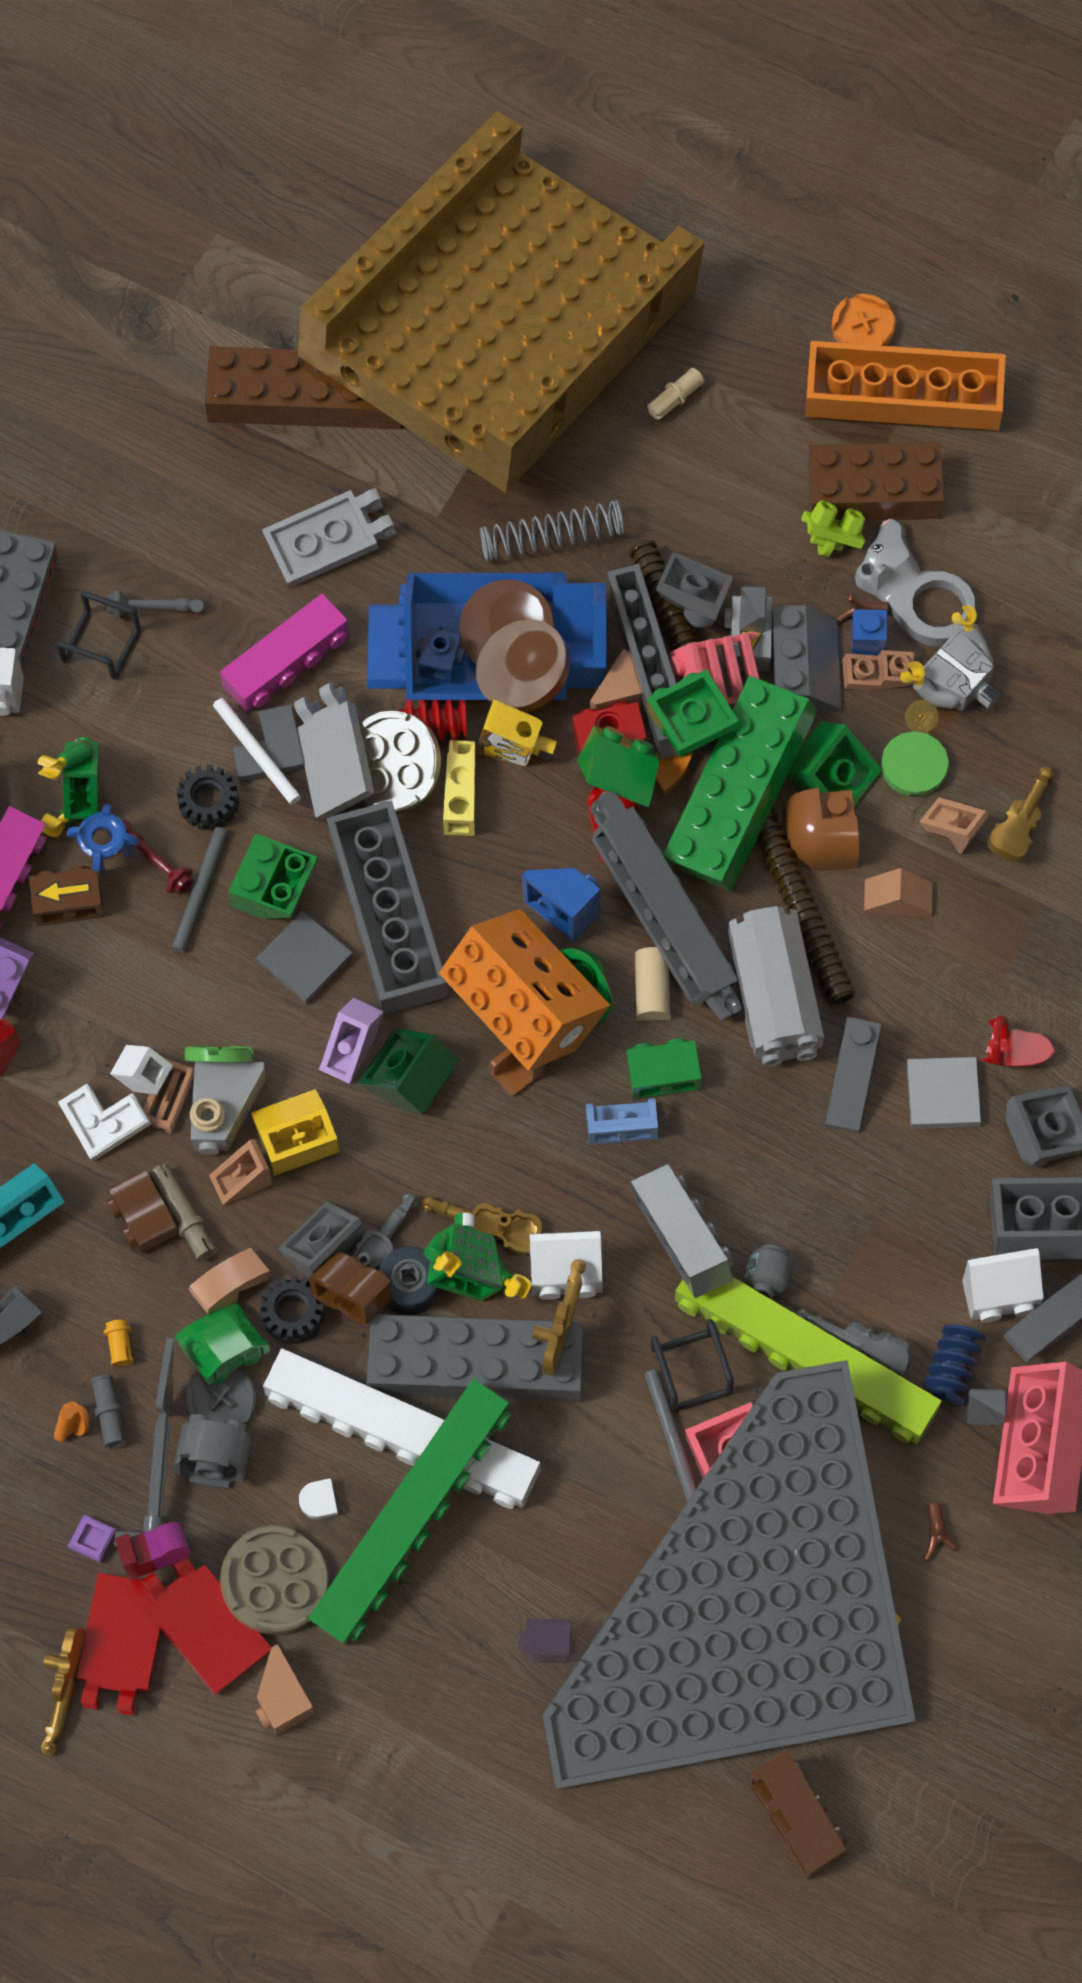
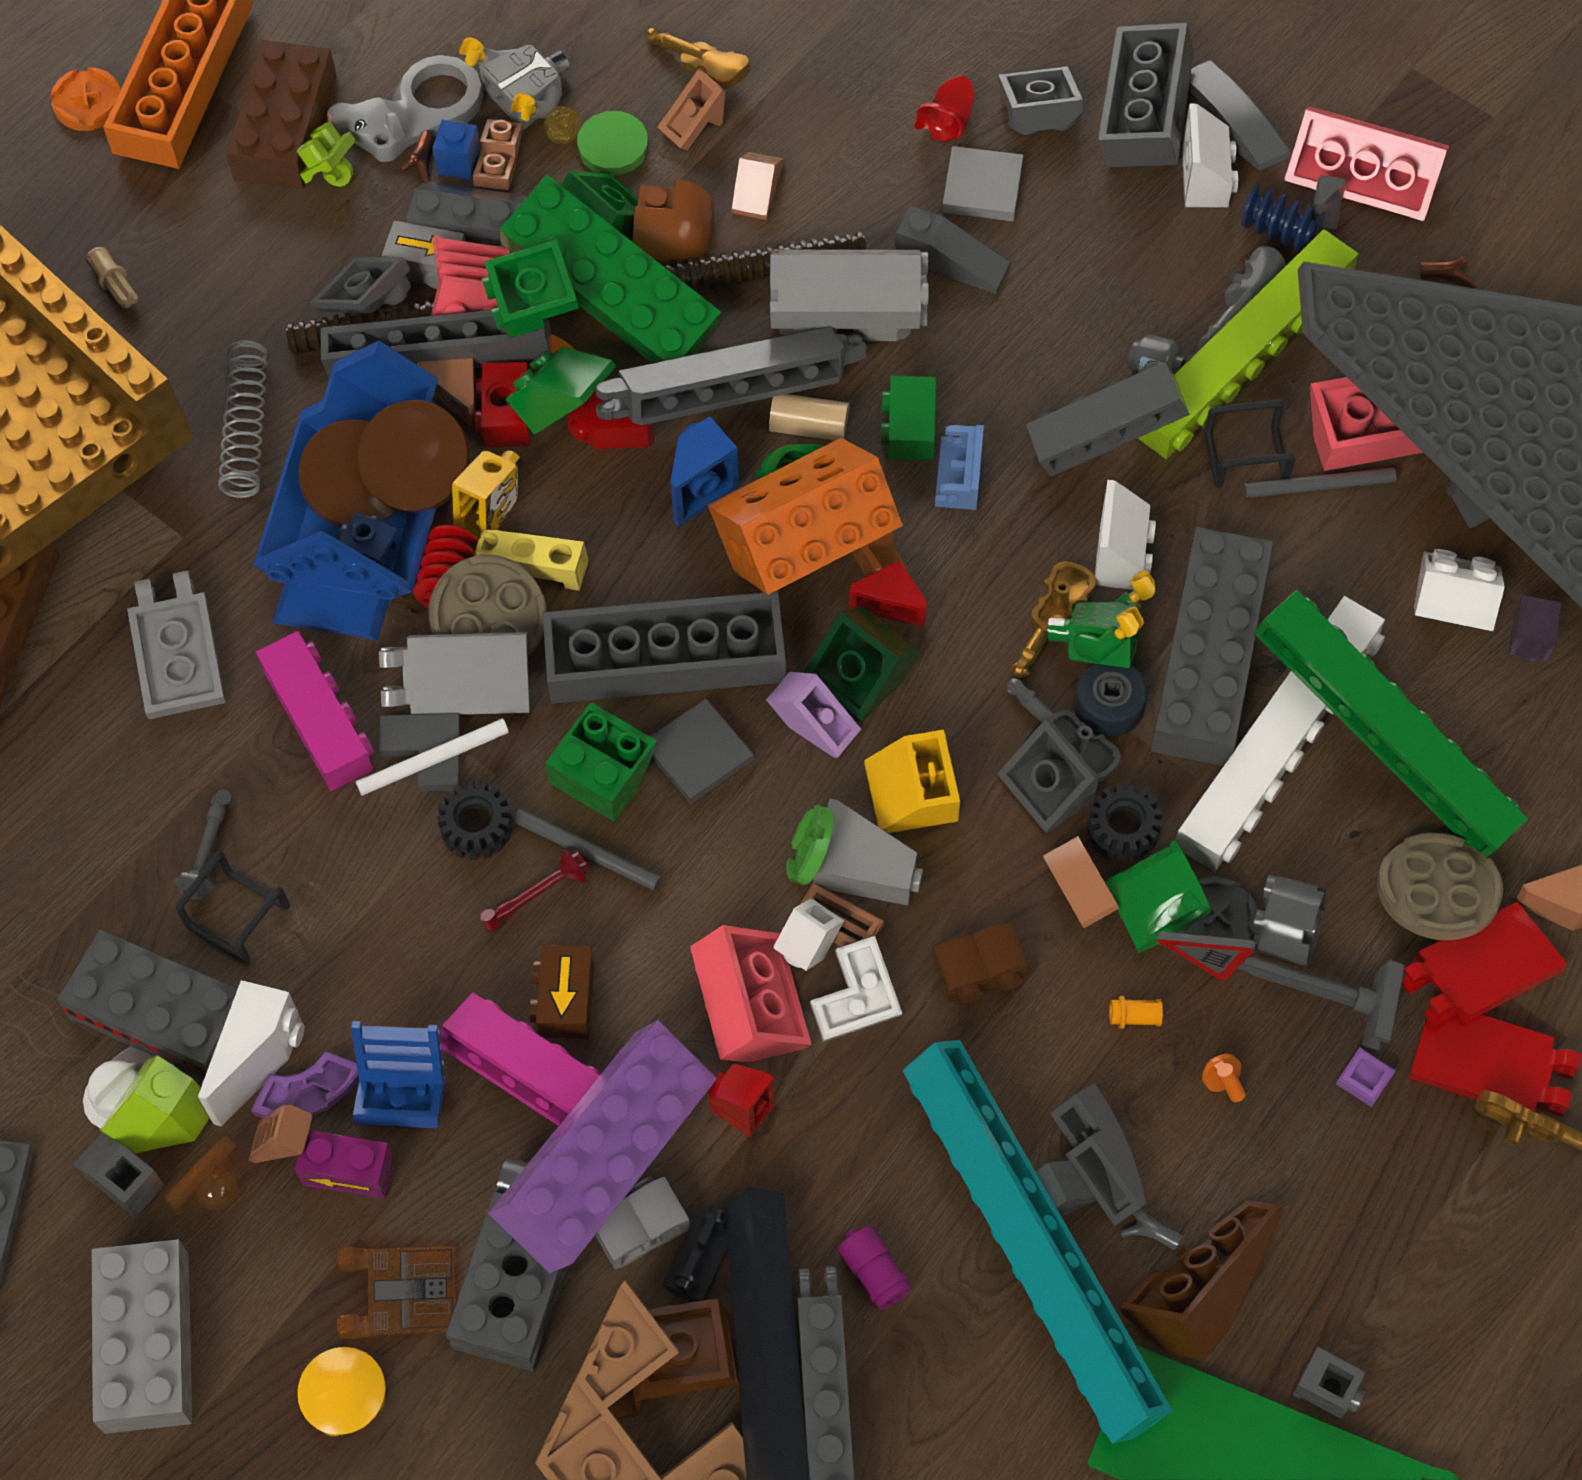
camera: 80 degrees left, 5 degrees down
(80, 782) = (425, 945): green torso -> none
(84, 1037) = (749, 995): none -> coral slope
(108, 1411) = (1218, 1034): dark grey pin -> none
(114, 828) = (529, 933): blue piece -> none
(152, 1549) = (1409, 990): leg -> none
(189, 1223) = (1014, 911): dark tan pin -> none
(207, 1105) = (888, 851): tan plate -> none
(241, 1174) = (954, 847): nougat slope -> none
(318, 1500) = (1348, 831): white tile -> none
(351, 1287) = (1123, 742): reddish brown brick -> none
(480, 1083) = (890, 595): none -> red slope
(564, 1315) = (1217, 541): pearl gold piece -> none
(576, 1568) = (1459, 589): none -> white slope
(753, 609) = (409, 230): dark grey slope -> none

